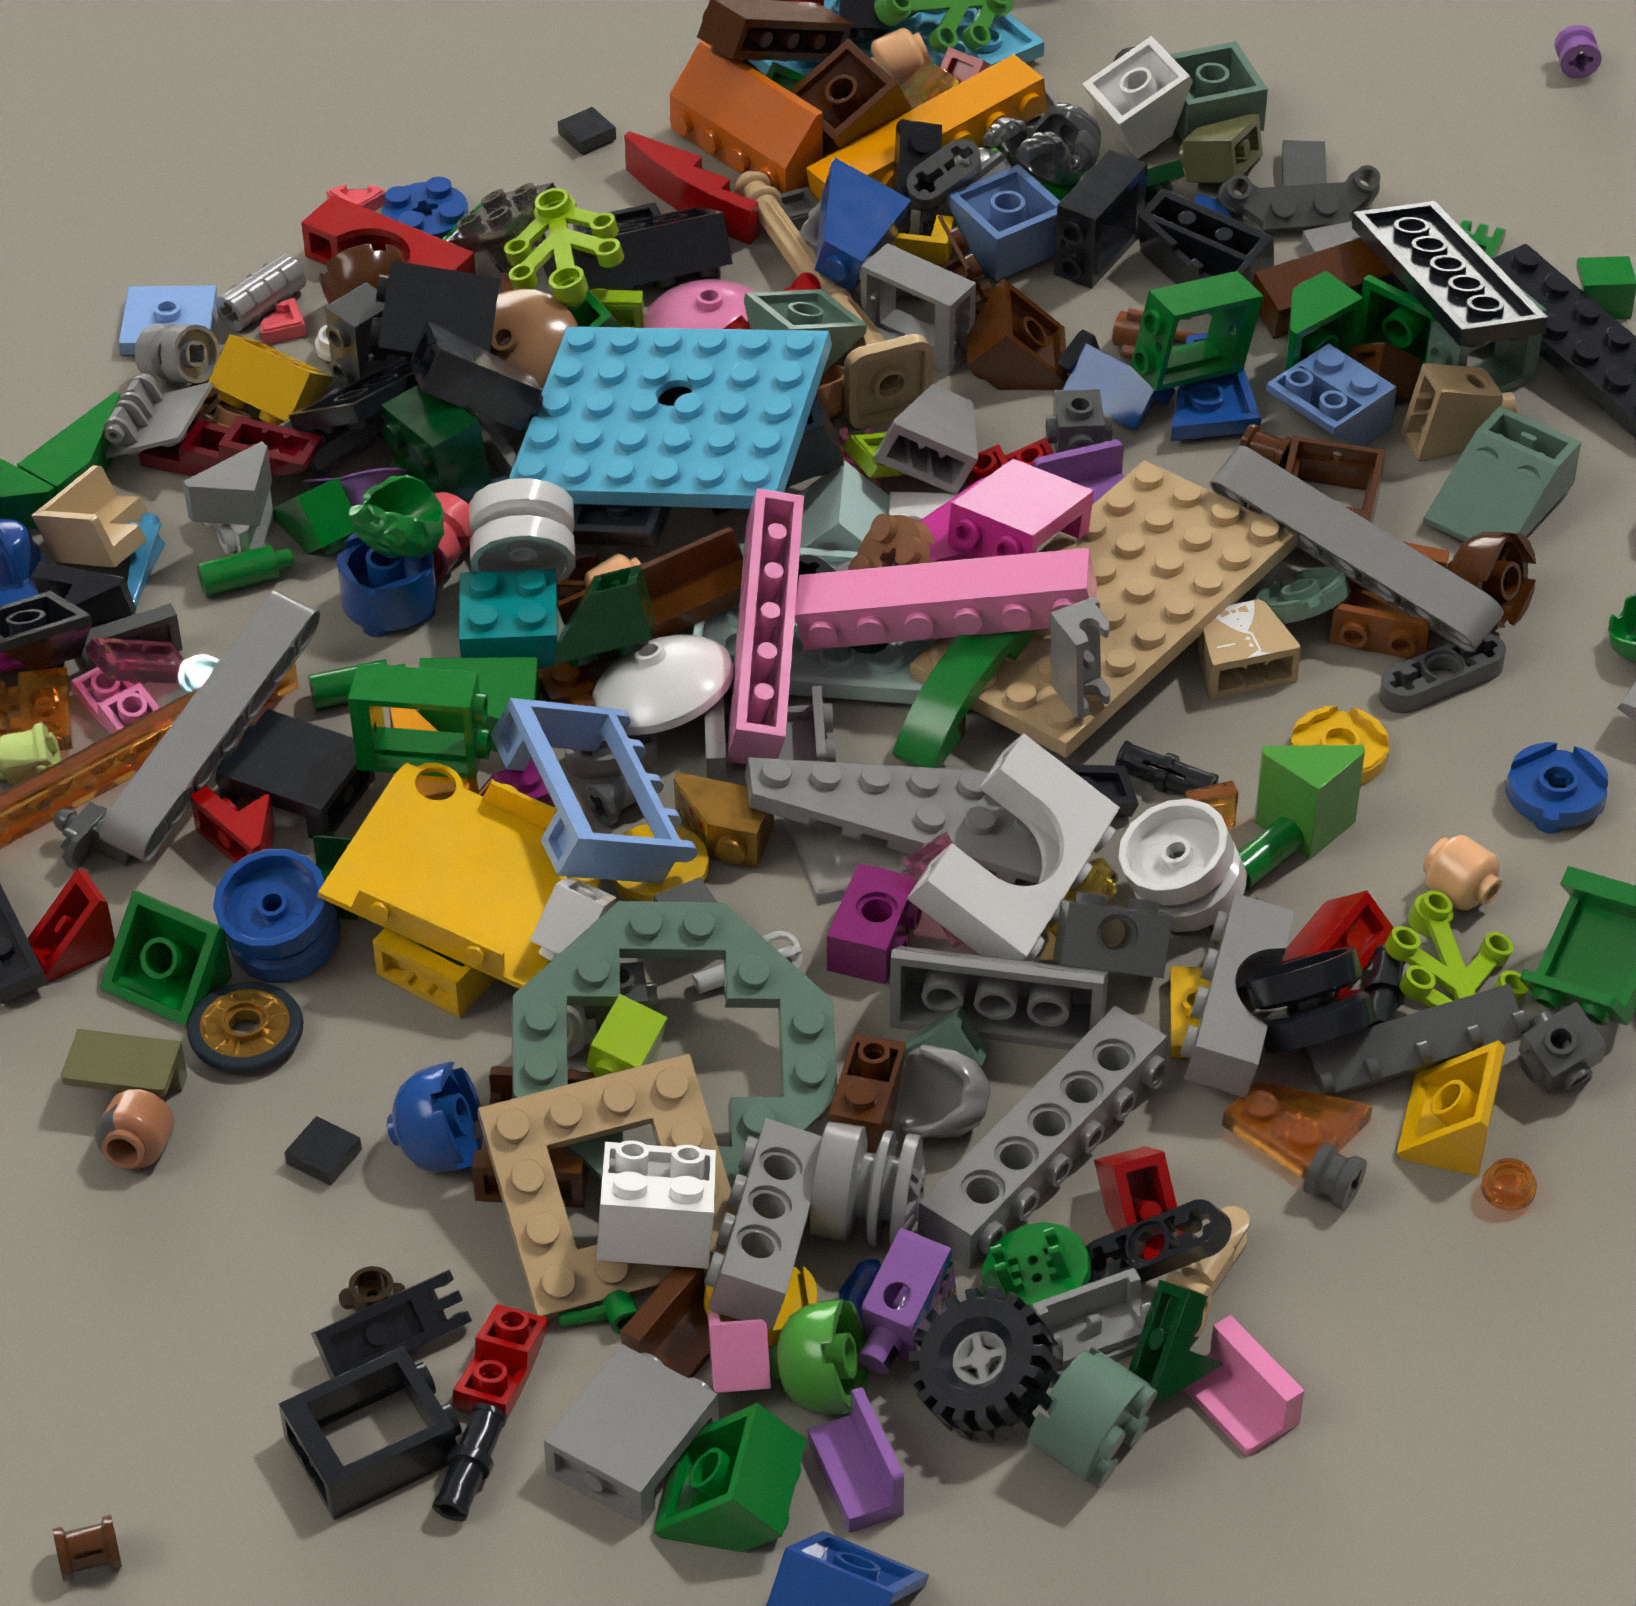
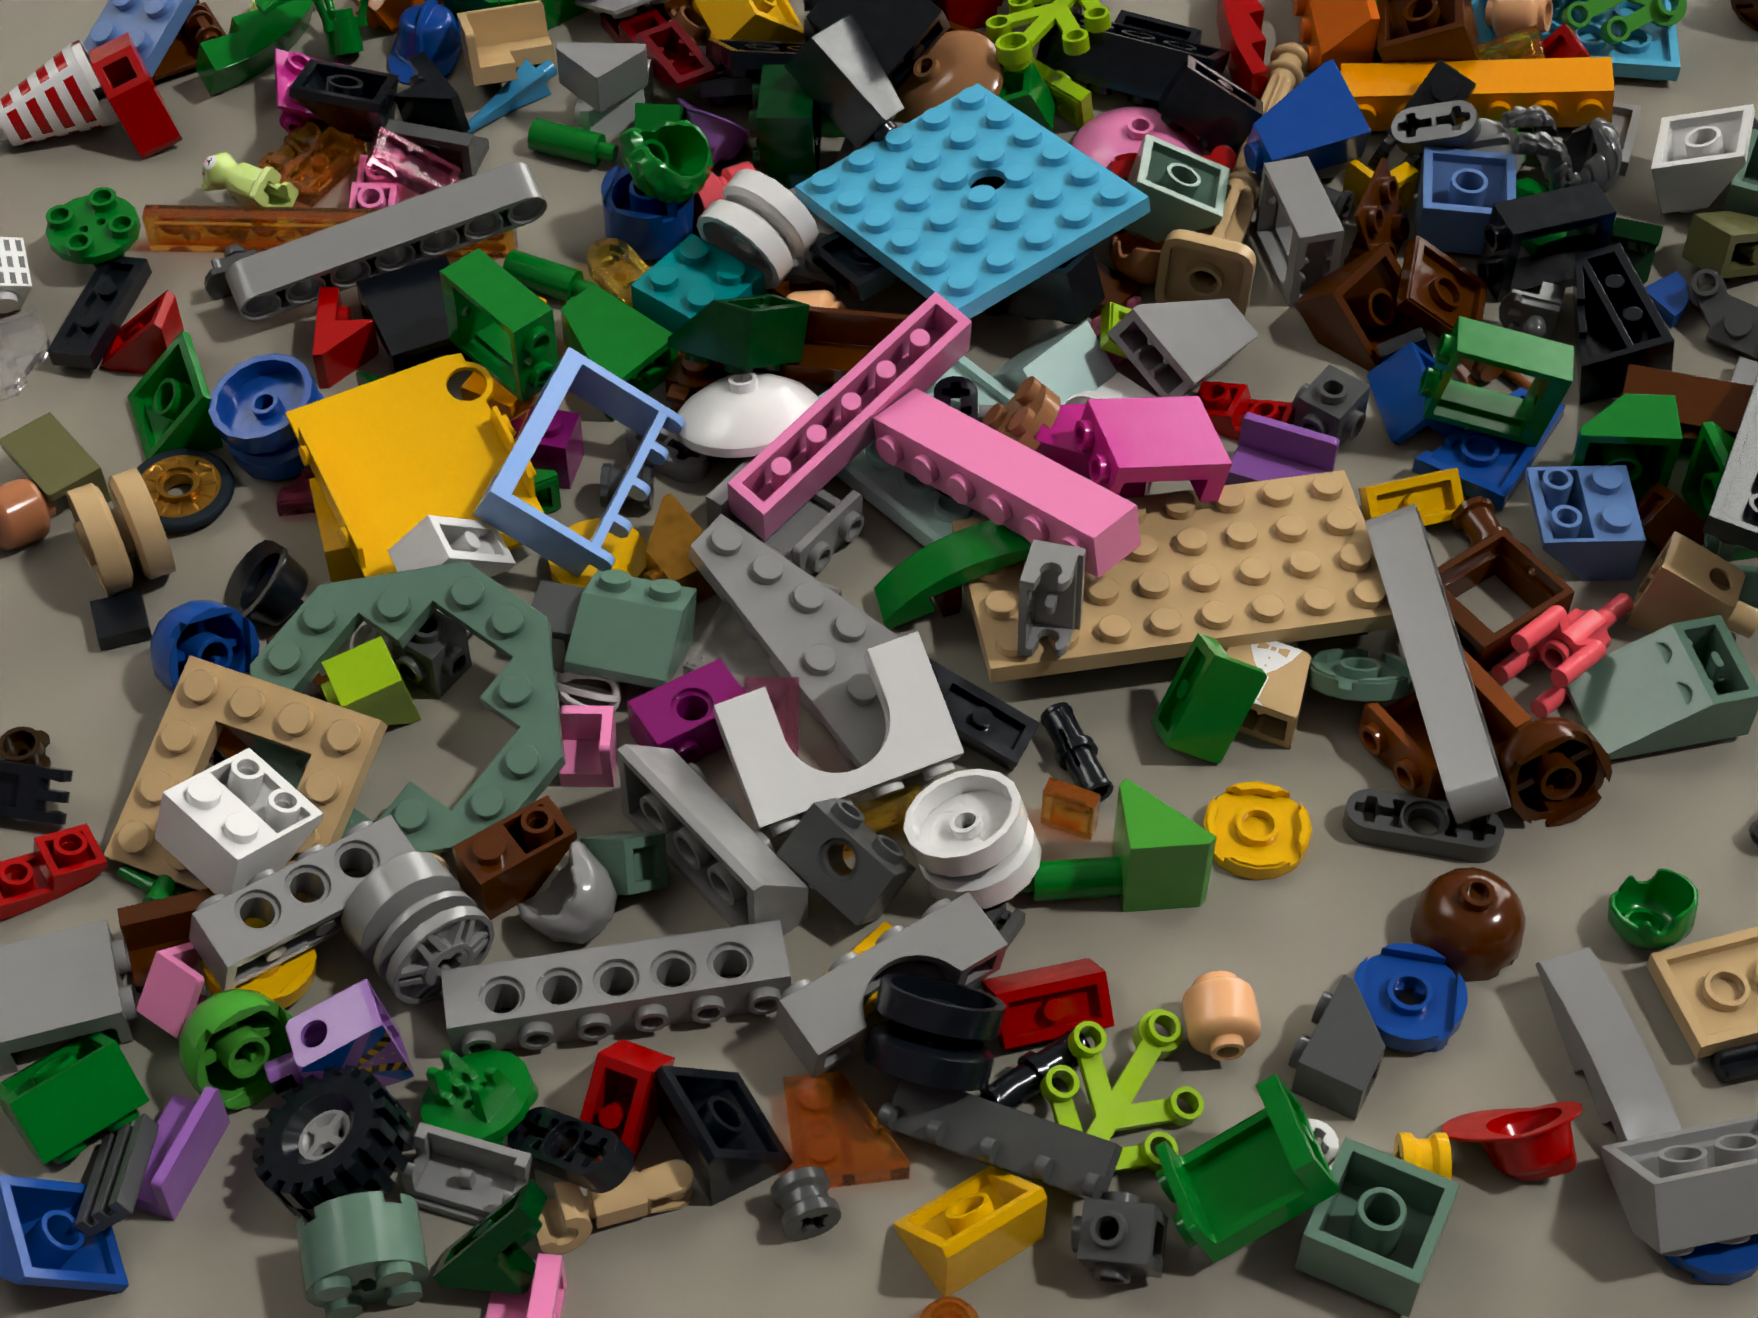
camera: 40 degrees right, 5 degrees up
(266, 1074) = (128, 528): none -> tan wheel
(353, 963) = (297, 496): none -> clear pink tile
(408, 640) = (615, 267): none -> clear yellow plate
(421, 1036) = (267, 584): none -> black piece
(750, 252) = (1209, 106): none -> black brick
(768, 881) = (631, 629): none -> sand green slope
(817, 1482) = (117, 1176): none -> dark grey tile
(836, 979) = (588, 746): none -> bright pink panel
(1063, 299) = (1437, 288): none -> reddish brown plate
(1133, 277) = (1532, 312): none -> dark grey piece
(1203, 452) = (1434, 494): none -> yellow plate
(1223, 1177) = (718, 1129): none -> black slope
(1227, 673) = (1207, 701): none -> green panel
(1410, 493) = (1565, 644): none -> coral plant
(1541, 707) = (1471, 922): none -> reddish brown cylinder
(1554, 839) = (1342, 1054): none -> dark grey slope

